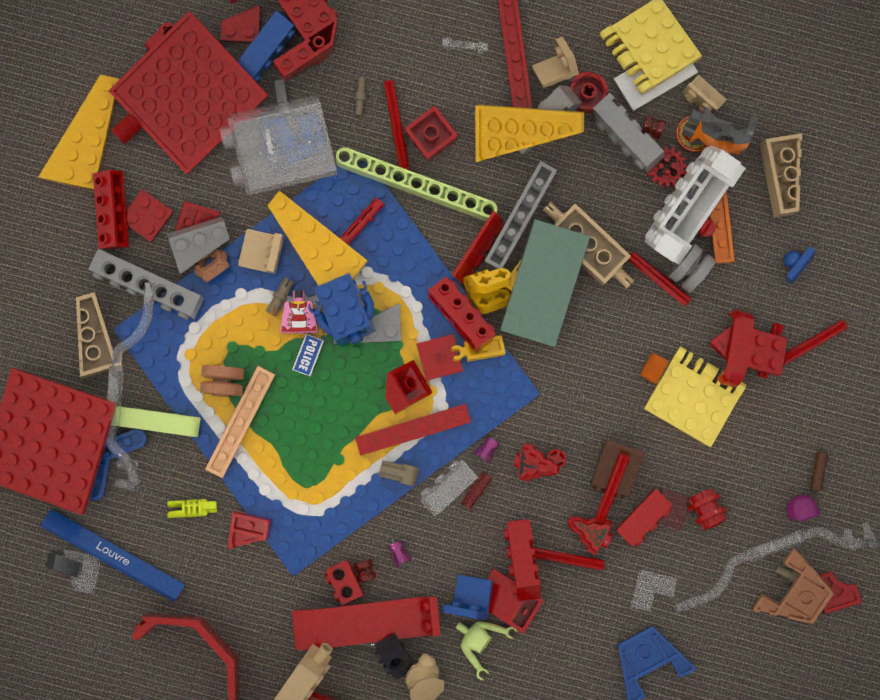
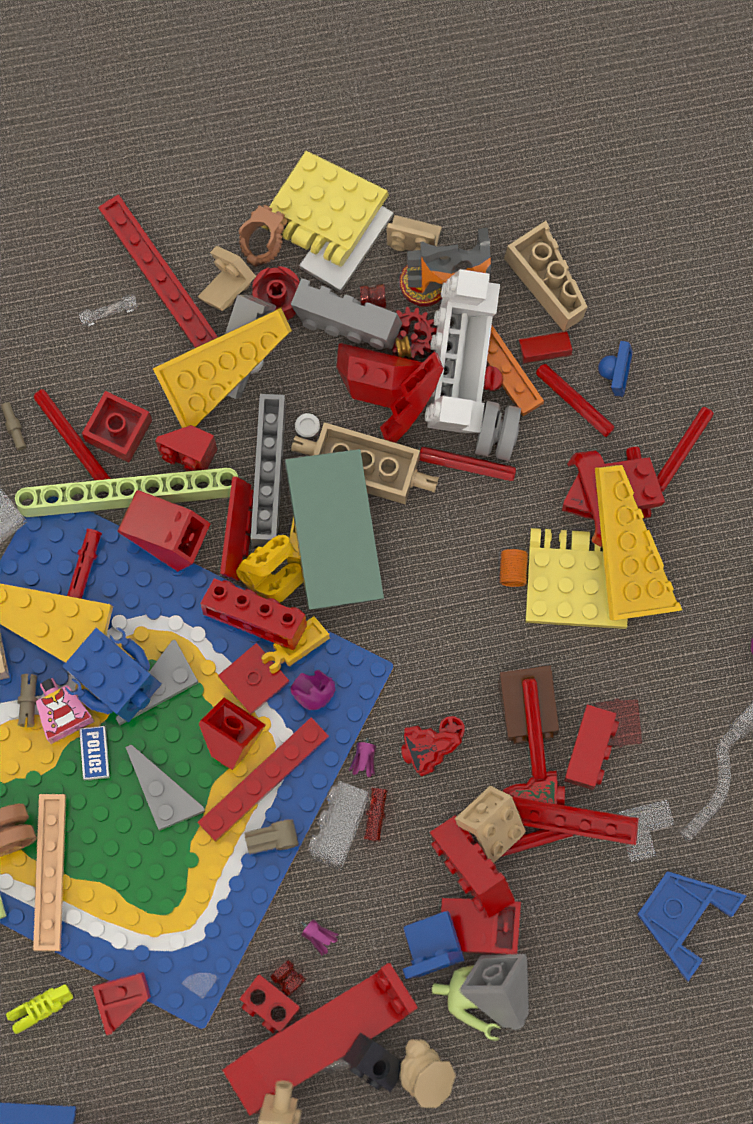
camera: 20 degrees left, 10 degrees down
(305, 545) = (200, 983): none -> clear tile
(341, 411) = (165, 798): none -> light grey wing
(428, 225) = (164, 529): none -> red slope
(473, 174) = (187, 447): none -> red slope
(476, 386) = (313, 690): none -> magenta hair
(501, 649) = (500, 988): none -> light grey slope
(552, 537) = (493, 821): none -> tan bracket
(562, 197) = (307, 426): none -> white tile
(599, 556) = (577, 821): none -> red tile
(611, 40) = (263, 217): none -> nougat piece
(630, 188) = (373, 374): none -> red wedge
(645, 218) = (416, 393): none -> red slope
(656, 176) = (403, 347): none -> pearl gold bush
(707, 509) = (660, 699): red piece -> none
(737, 406) = (631, 560): none -> yellow wing
(755, 222) = (545, 347): none -> red slope
(756, 270) = (575, 400): none -> red axle

